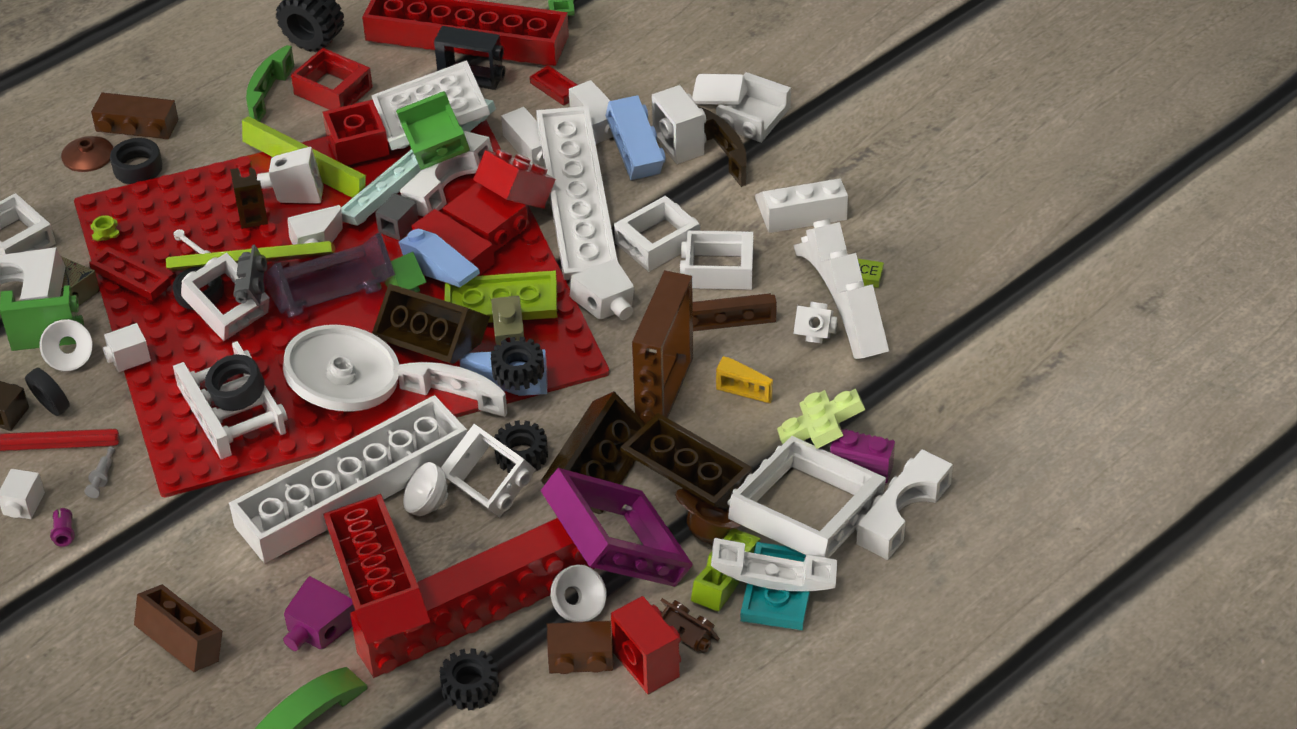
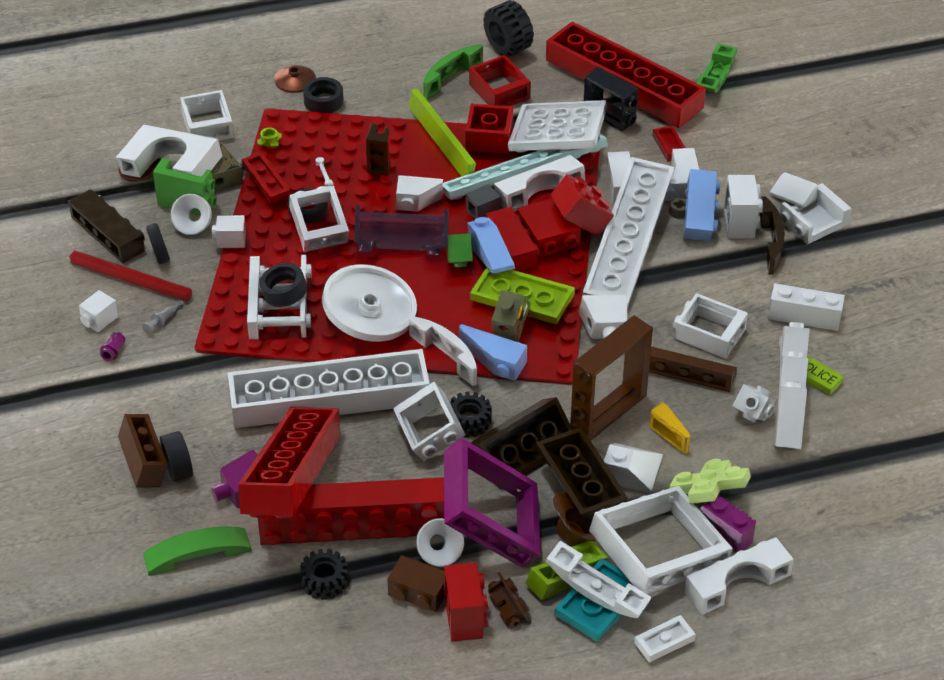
camera: 25 degrees right, 0 degrees up
(134, 115) = (342, 61): reddish brown brick -> none
(226, 614) = (176, 456): none -> black tyre
(251, 267) = (344, 207): dark grey hinge -> none
(272, 254) = (359, 195): lime tile -> none
(294, 177) = (424, 147): white torso -> none
(425, 490) = (378, 419): white piece -> none
(429, 324) = (452, 294): dark brown slope -> none
(432, 130) = (541, 145): bright green panel -> none
(521, 374) = (492, 357): black tyre -> none
(604, 153) = (677, 208): none -> dark tan bush
(642, 250) = (673, 301): white window -> none
(730, 433) = (633, 466): none -> white slope
(869, 598) = (665, 638): none -> white plate

